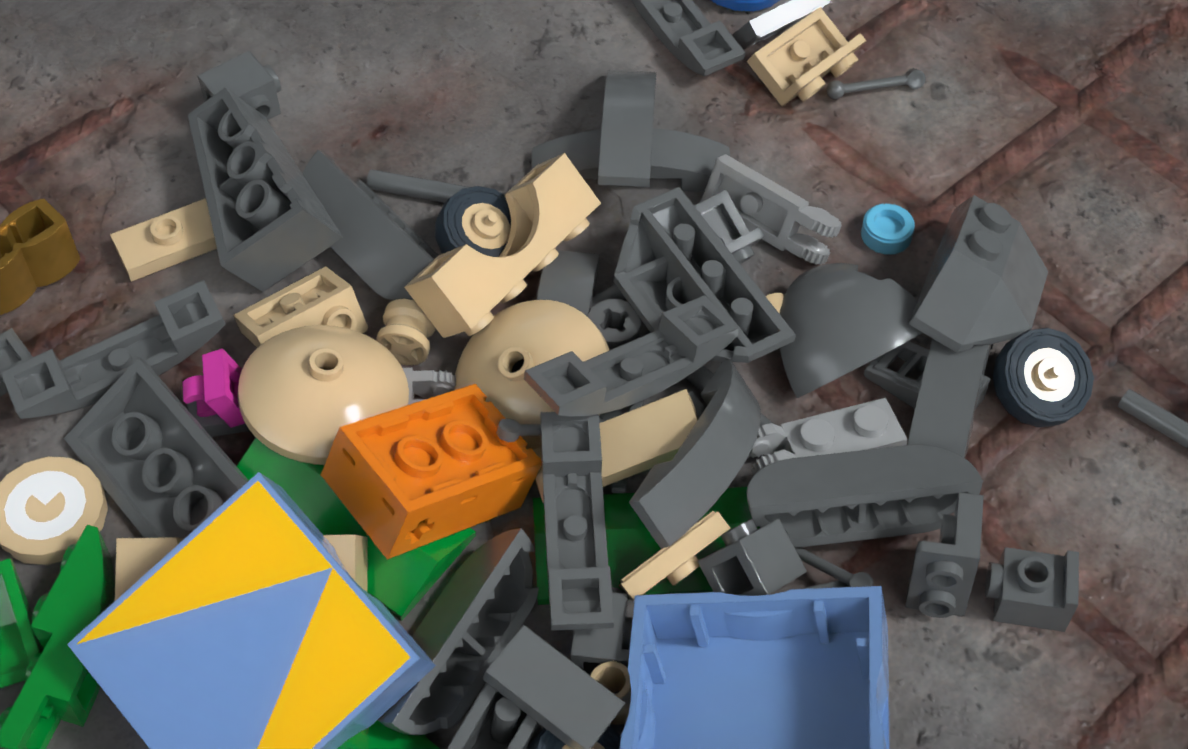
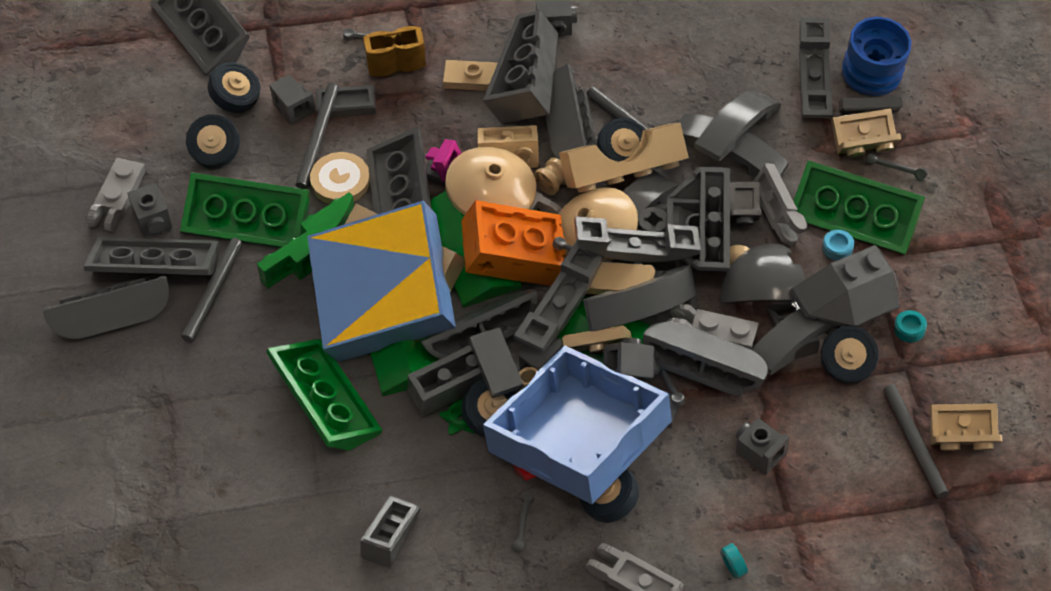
camera: 35 degrees right, 0 degrees up
(56, 386) = (434, 125): dark grey slope -> none
(879, 158) = (858, 206): none -> green slope
(947, 569) = (725, 412): dark grey bracket -> none
(1075, 293) = (910, 326): none -> teal tile

